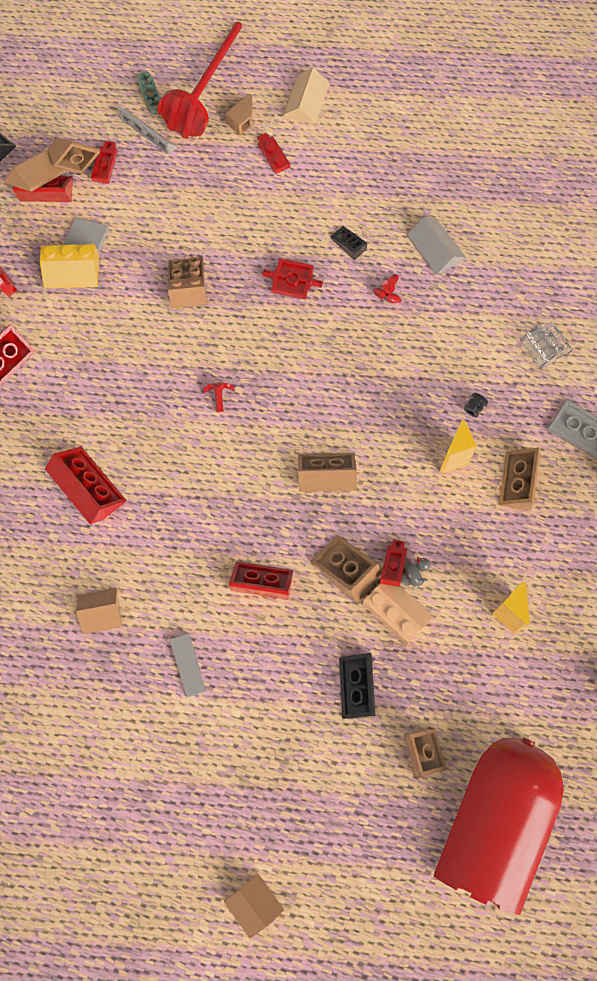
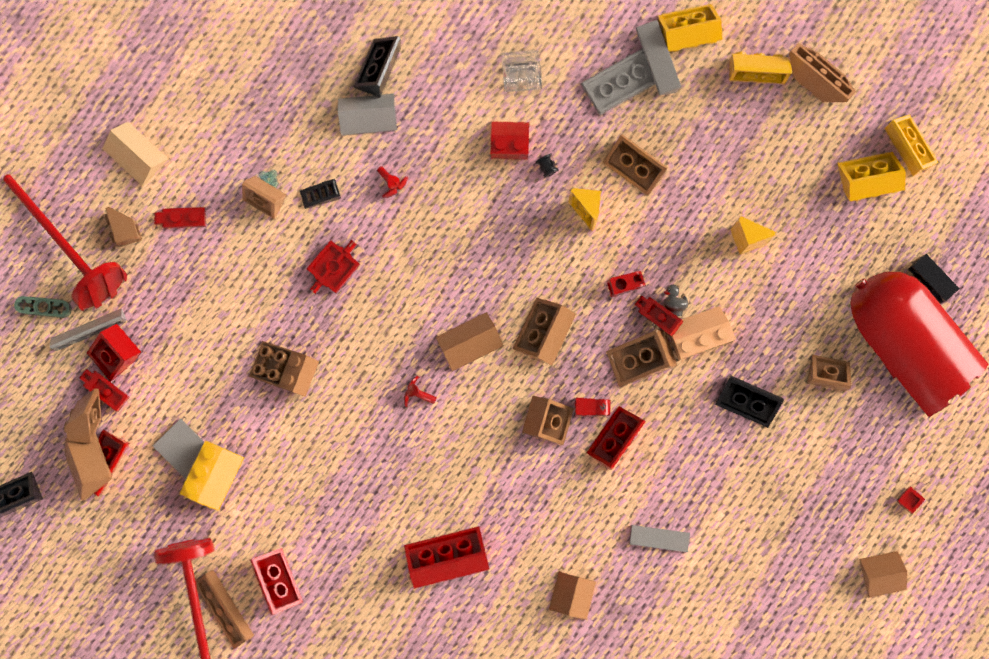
camera: 65 degrees left, 10 degrees up
(139, 154) = (113, 351): none -> red slope
(248, 513) = (547, 420): none -> medium nougat slope
(279, 544) = (592, 407): none -> red leg
(285, 415) = (469, 341): none -> medium nougat slope
(322, 197) = (262, 196): none -> medium nougat slope
(338, 203) = (272, 175): none -> clear light blue plate
(341, 898) = (910, 500): none -> red plate
(408, 521) = (625, 283): none -> red leg
(479, 364) = (509, 140): none -> red slope
(482, 234) = (378, 65): none -> black slope
(574, 814) = (933, 278): none -> black piece

